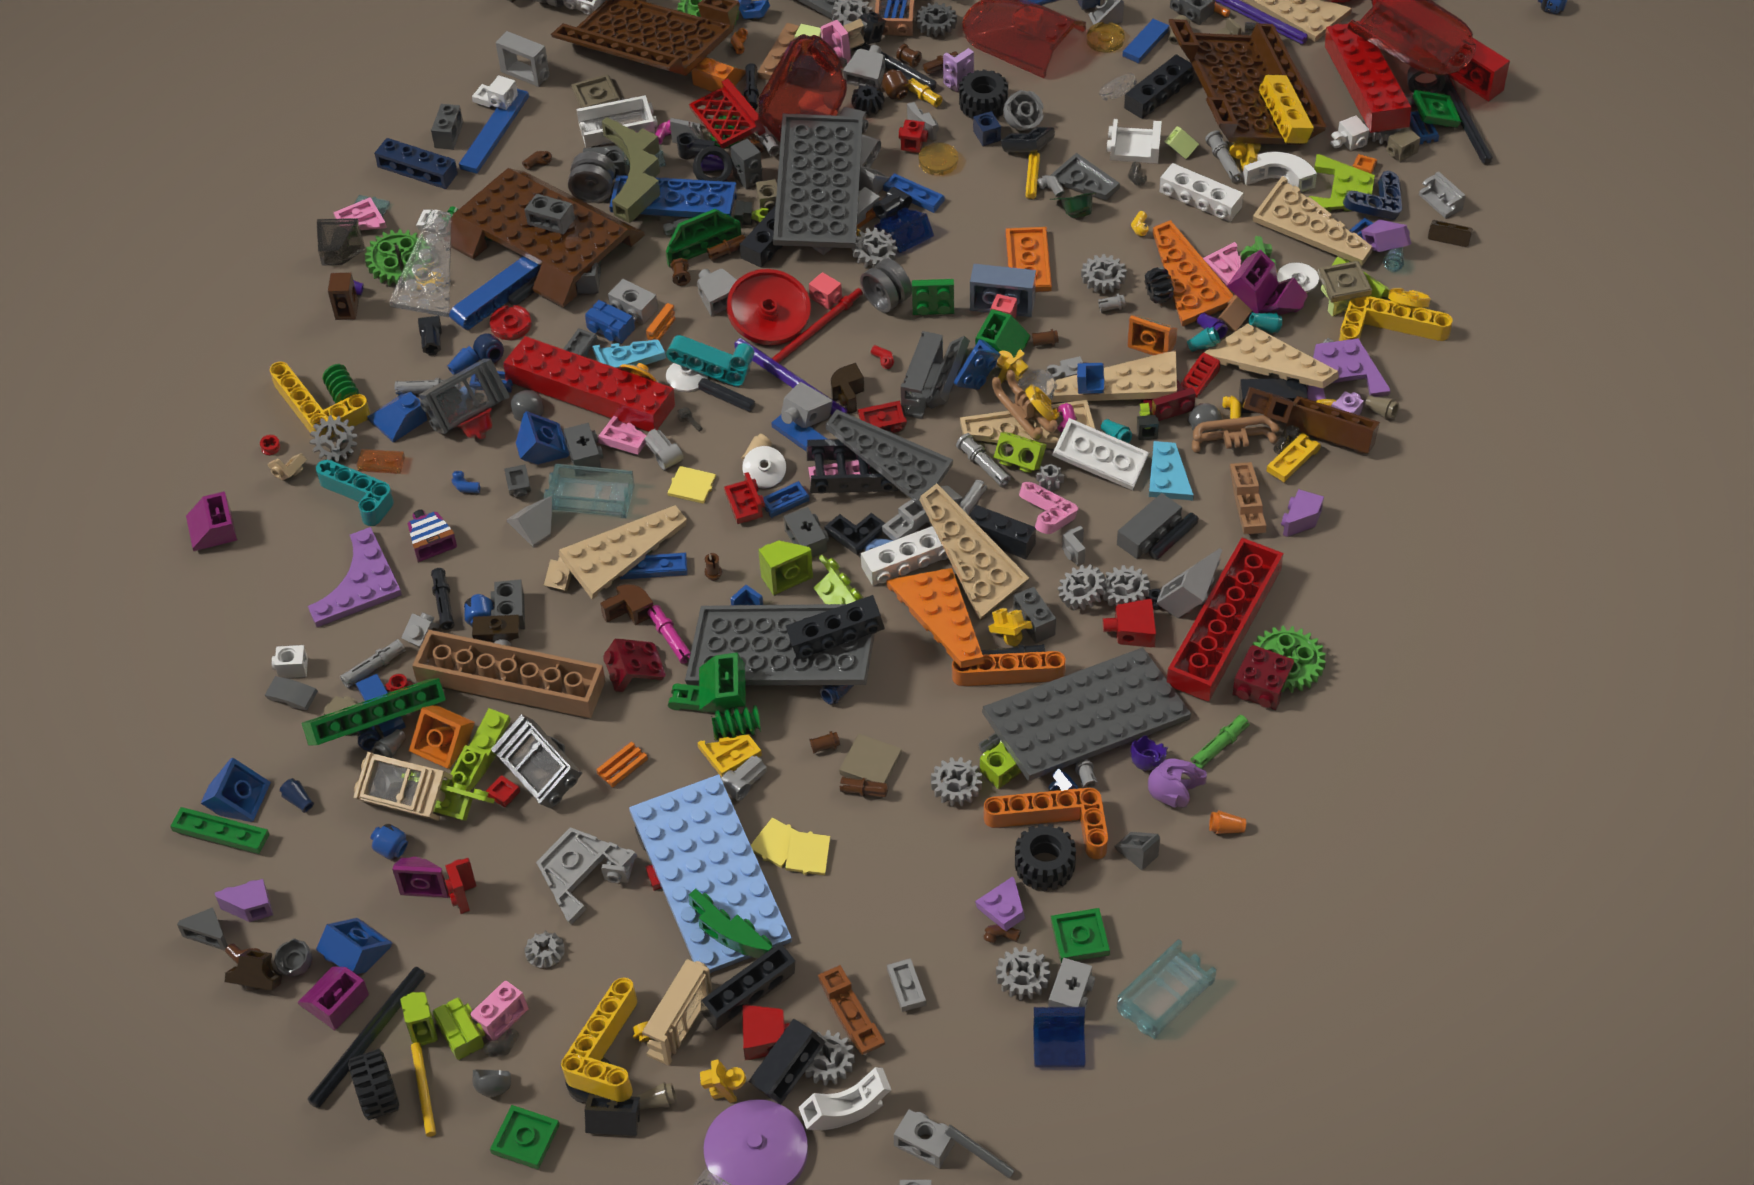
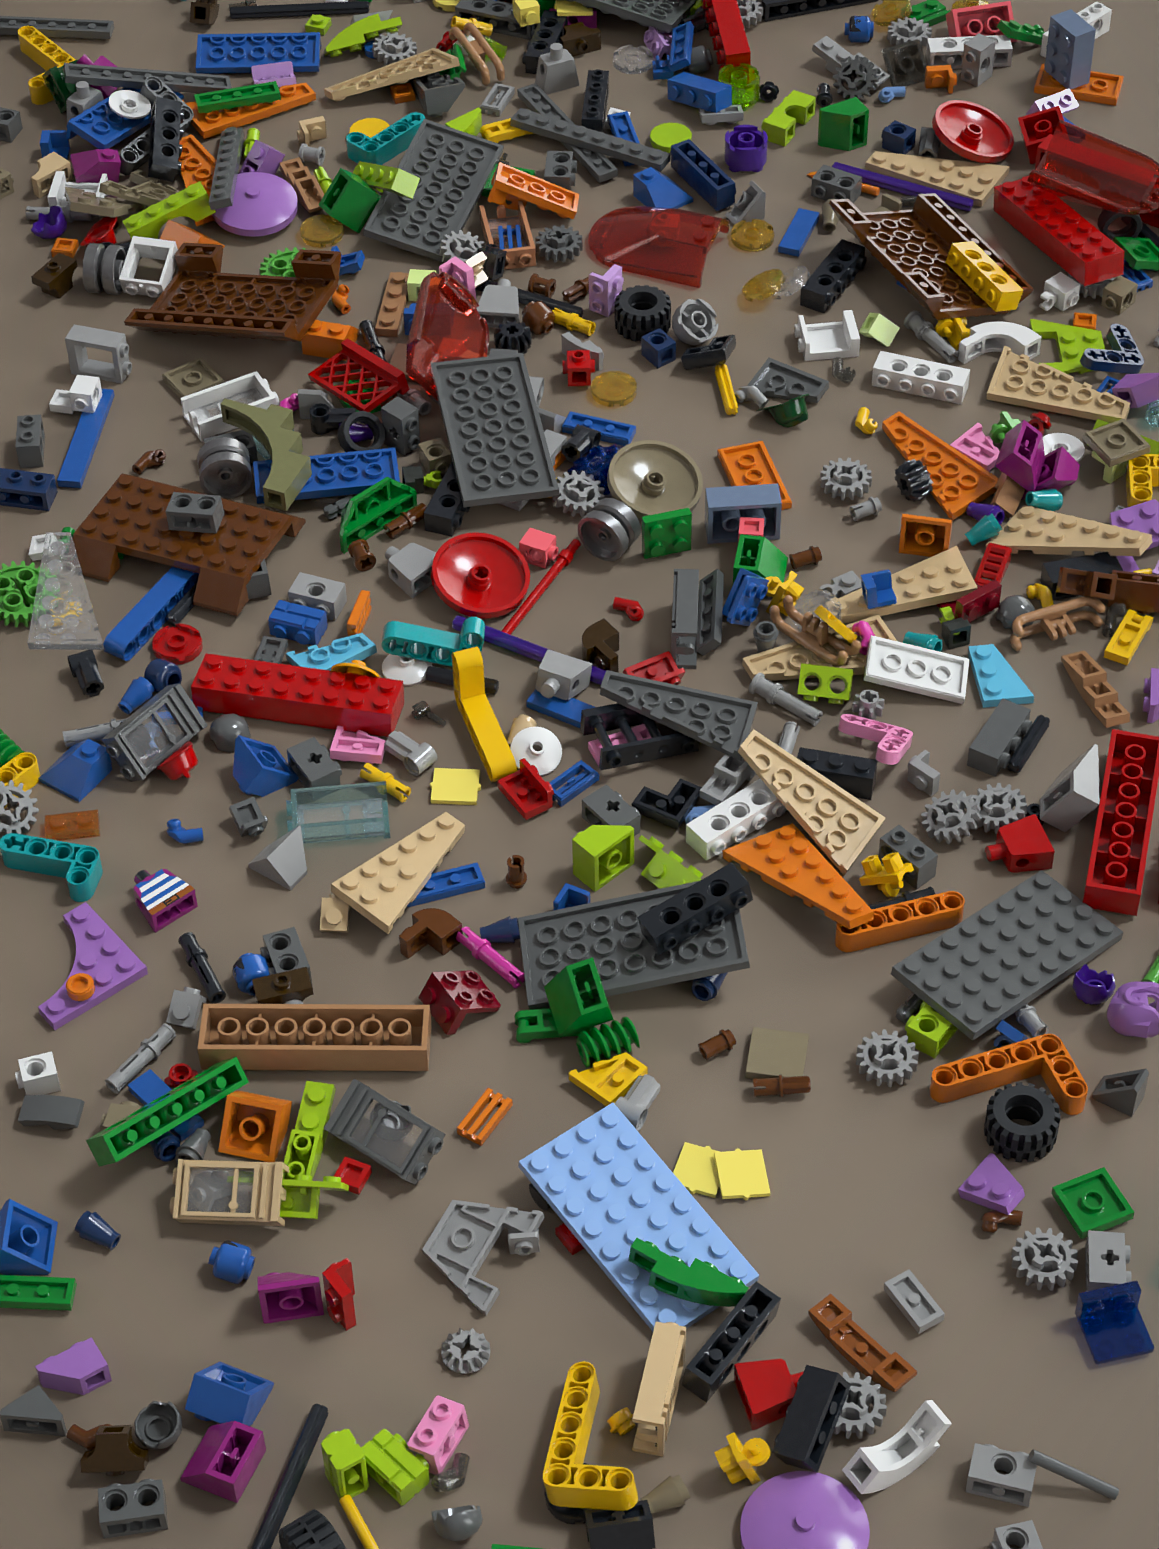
camera: 15 degrees left, 5 degrees down
(253, 1022) = (133, 1516): none -> dark grey brick
(342, 596) = (80, 987): none -> orange tile
(638, 471) = (392, 786): none -> yellow pin
(685, 614) = (501, 931): none -> dark blue cone
(727, 428) = (478, 714): none -> yellow beam
(940, 247) = (654, 478): none -> dark tan dish
(983, 401) = (765, 636): none -> dark grey cone
(1096, 85) = (763, 285): none -> clear yellow tile
(1289, 249) = (1040, 420): none -> red plate

